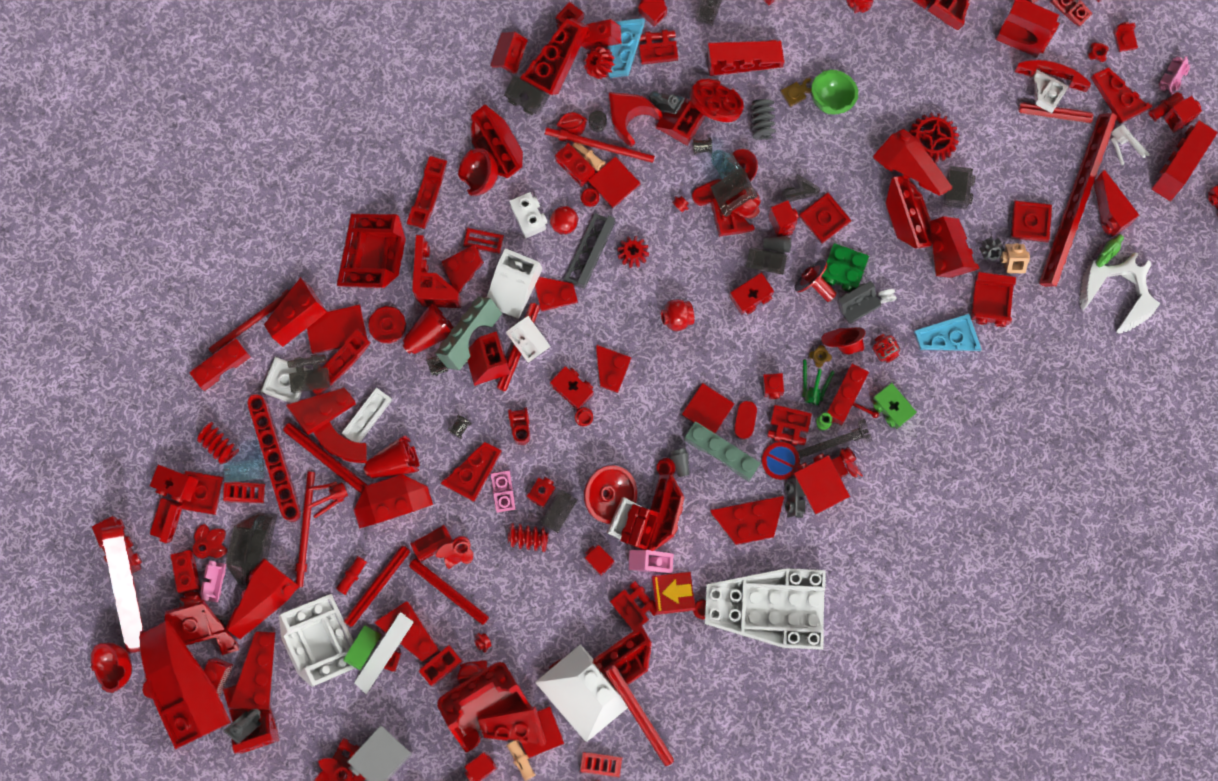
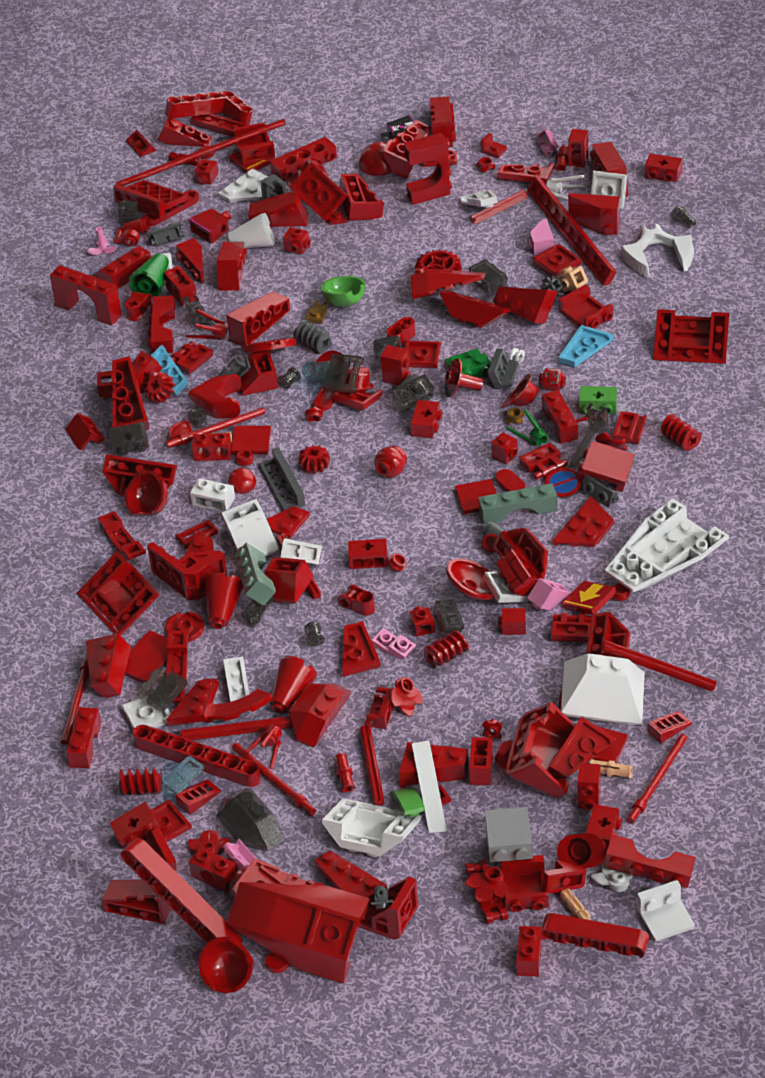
camera: 45 degrees left, 35 degrees down
(263, 596) = (295, 830): red wedge -> none
(449, 592) = (429, 725): red axle -> none
(611, 368) = (381, 526): red wing -> none
(702, 40) = (219, 330): none -> red plant
(825, 417) = (564, 434): bright green pin -> none
(835, 175) = (404, 328): none -> red beam
(887, 457) = (629, 427): none -> red plate
(913, 503) = (680, 432): none -> red piece
(1034, 414) = (691, 337): none -> red slope
(1045, 185) = (541, 237): none -> bright pink slope
(1077, 80) = (493, 182): red slope -> none
(1109, 251) = (624, 237): bright green piece -> none
(1152, 187) = (609, 184): none -> white tile
(1181, 274) = (683, 217): none -> clear smoke cone

